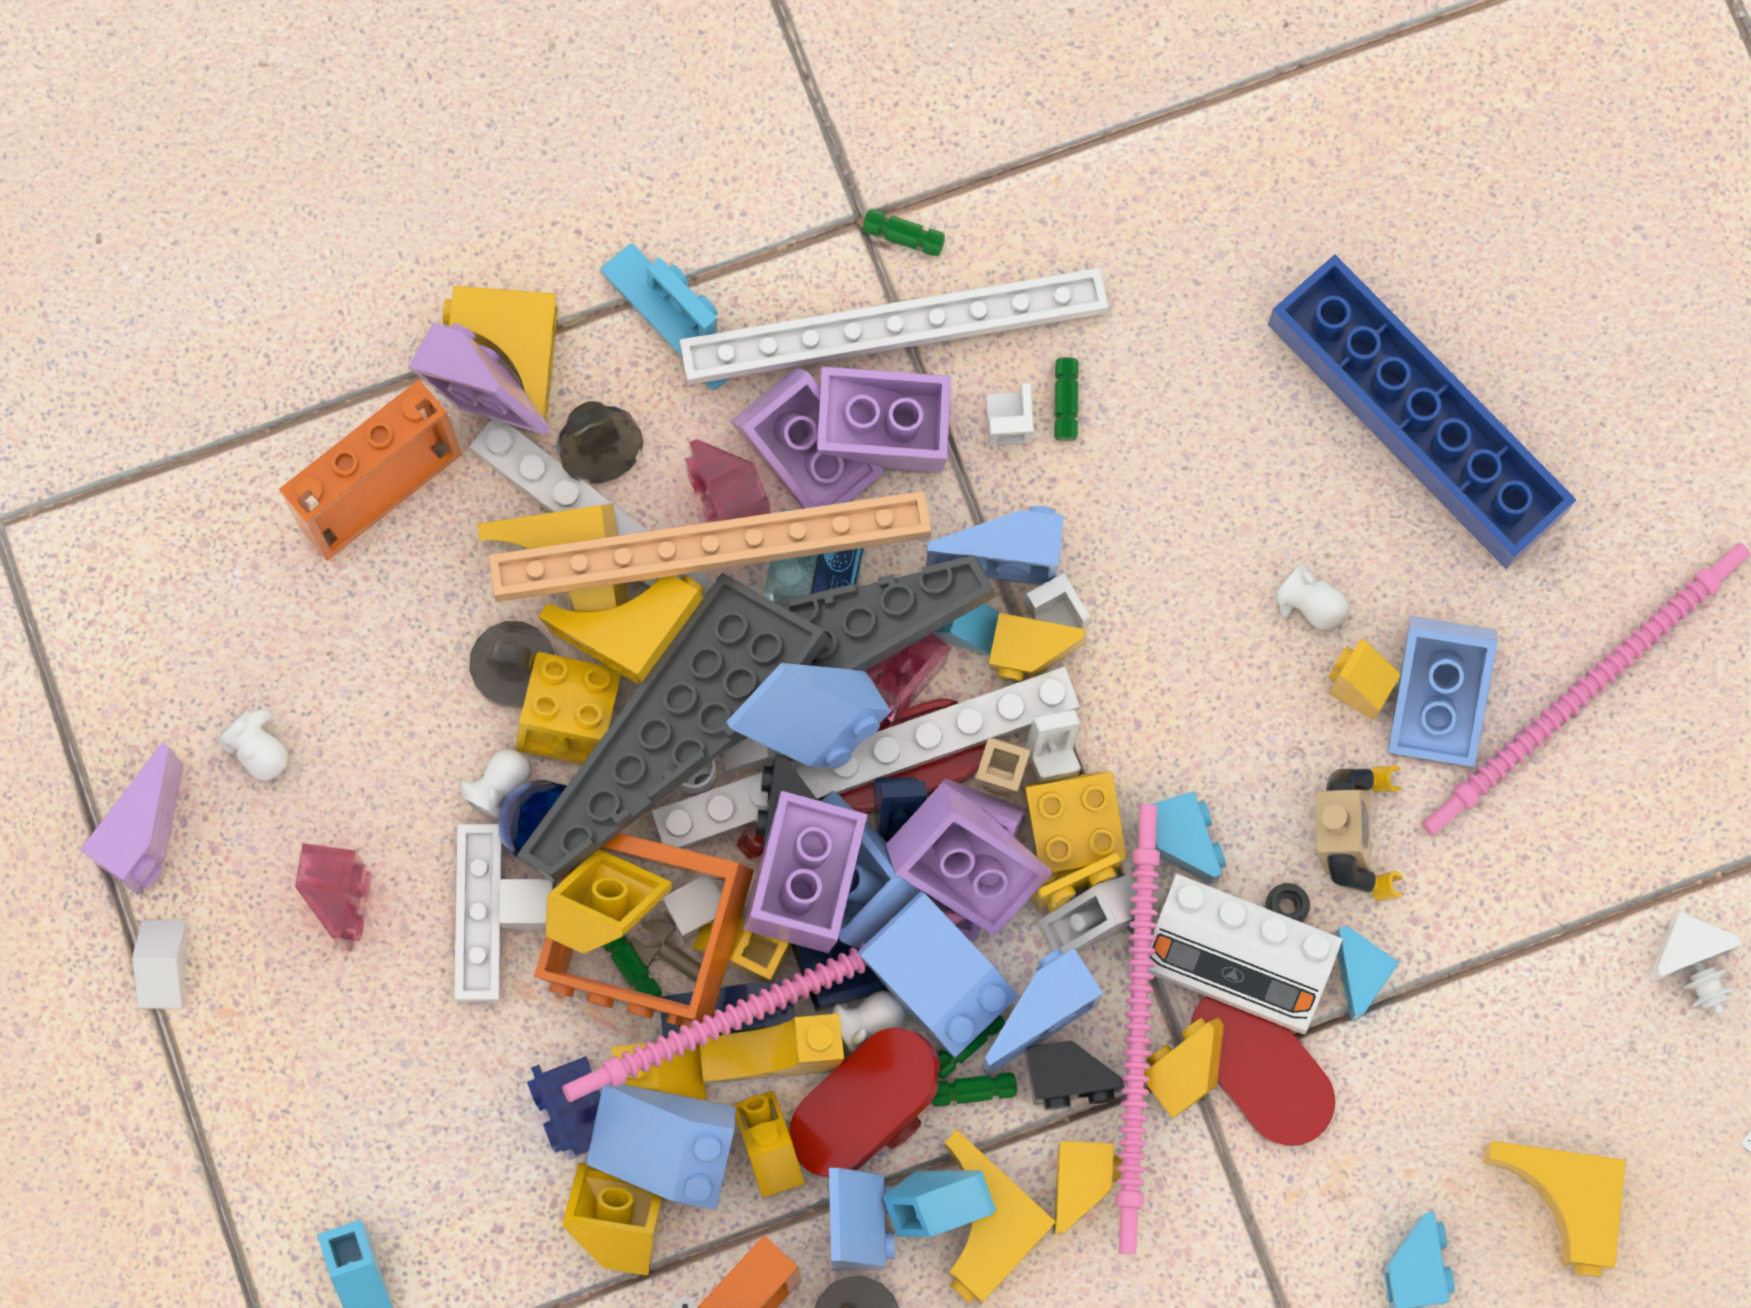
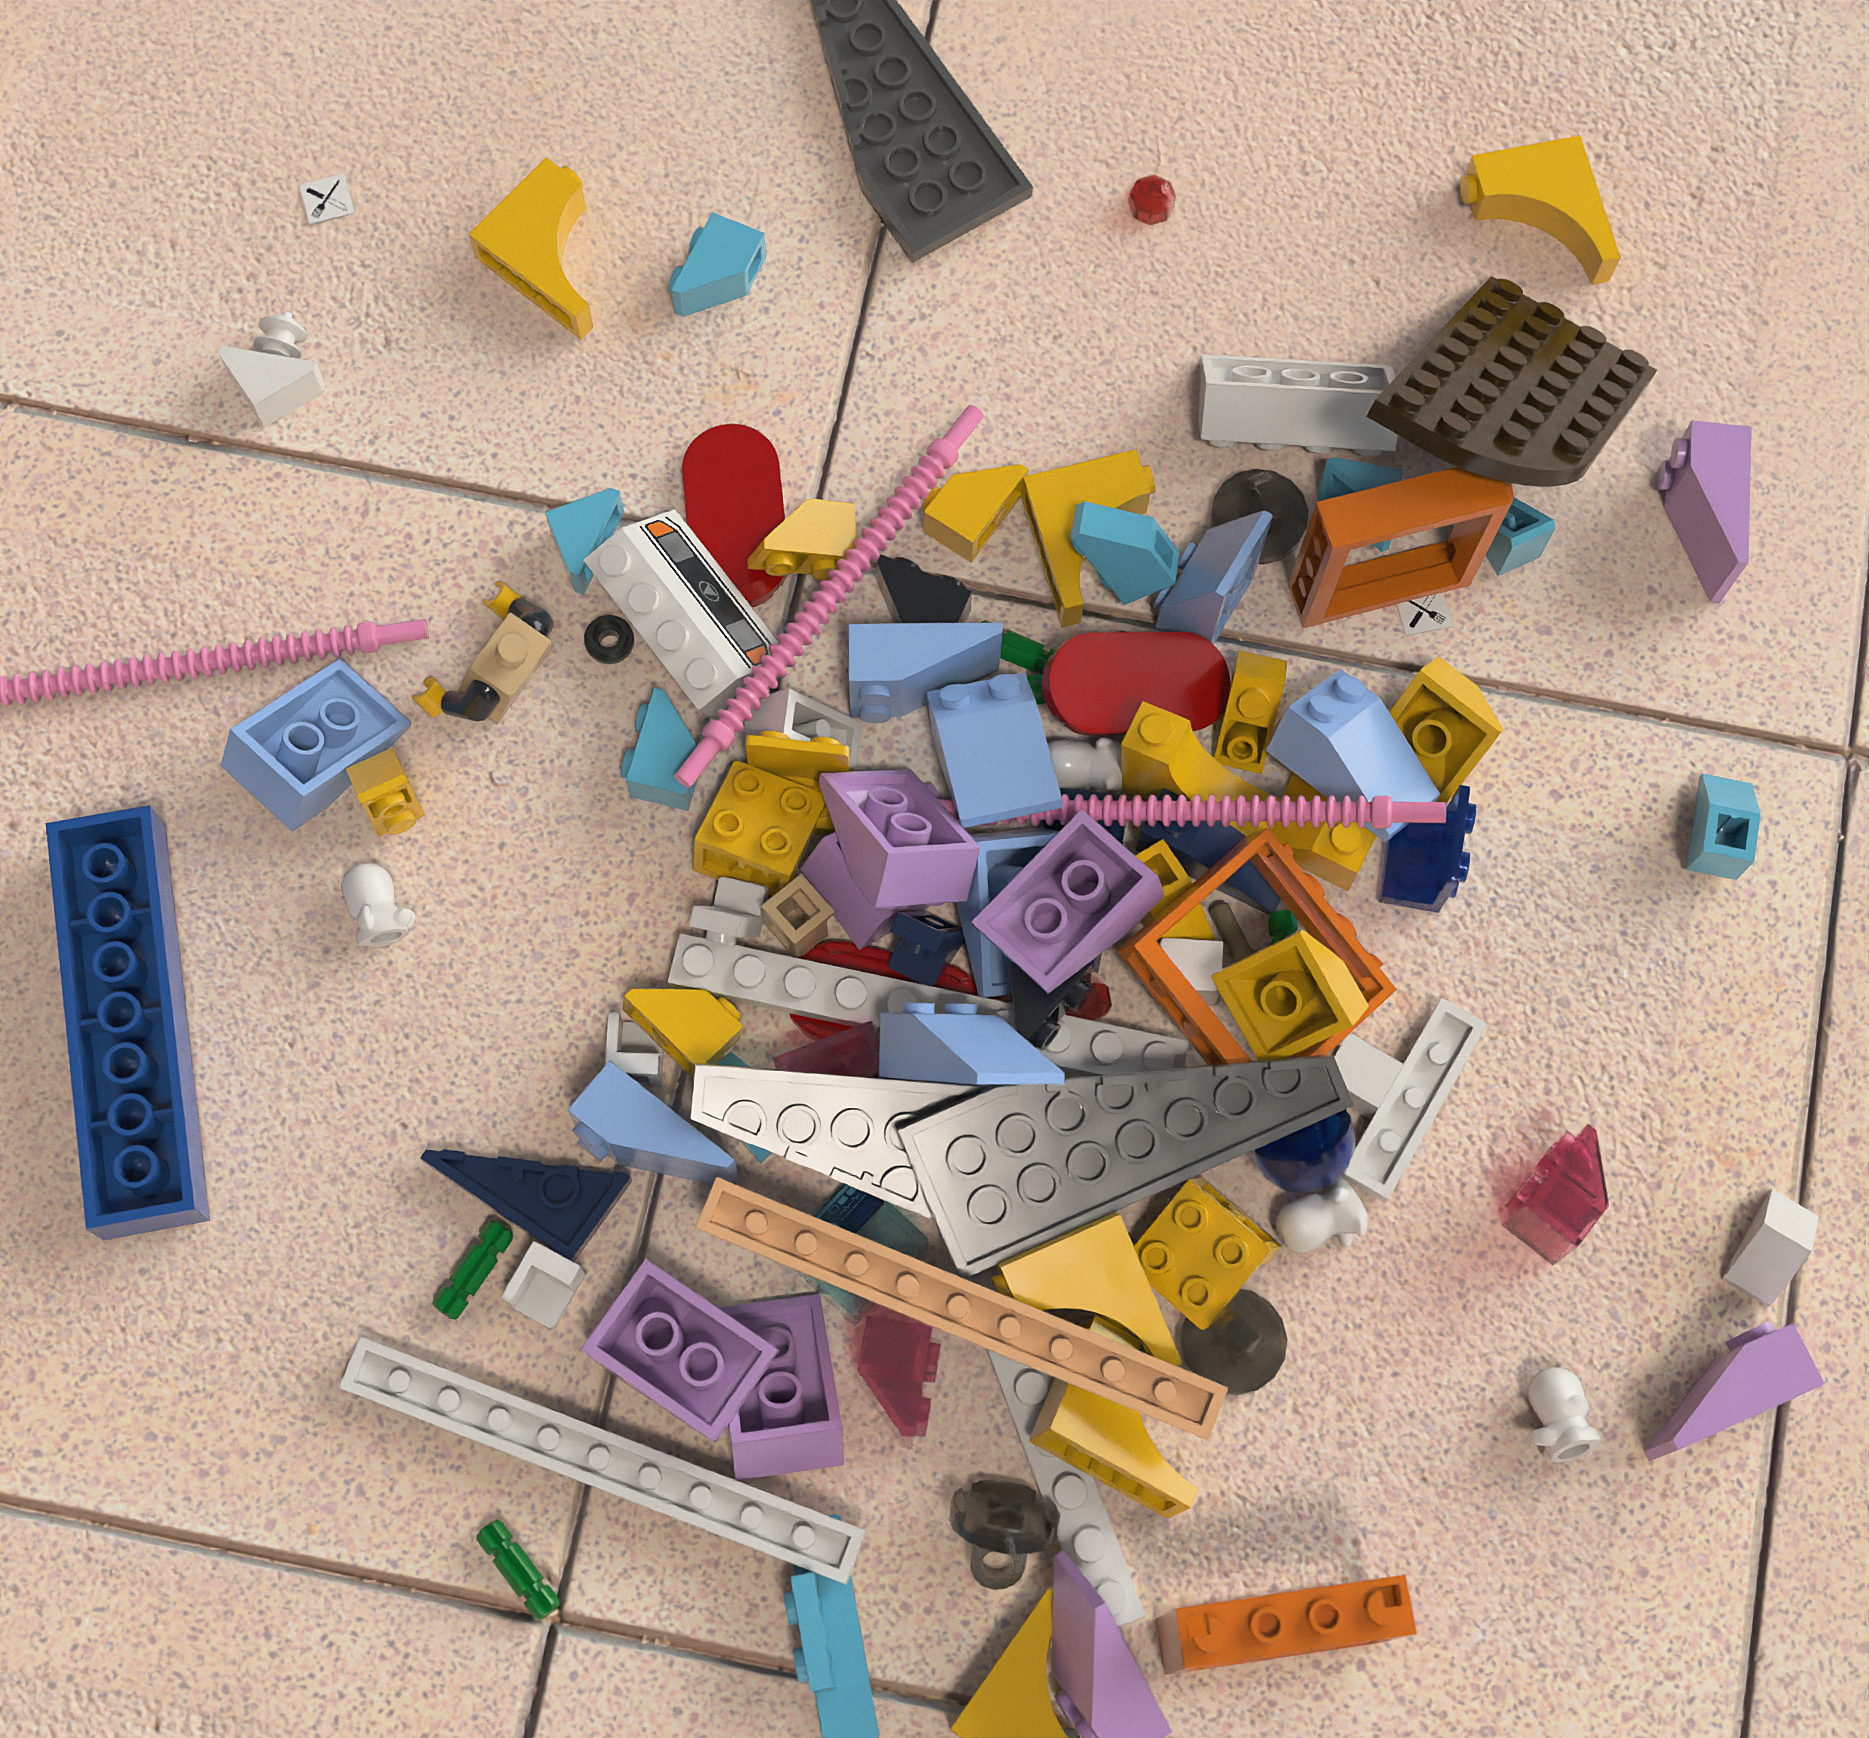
camera: 150 degrees left, 5 degrees down
(1052, 470) = (548, 1202): none -> dark blue wing

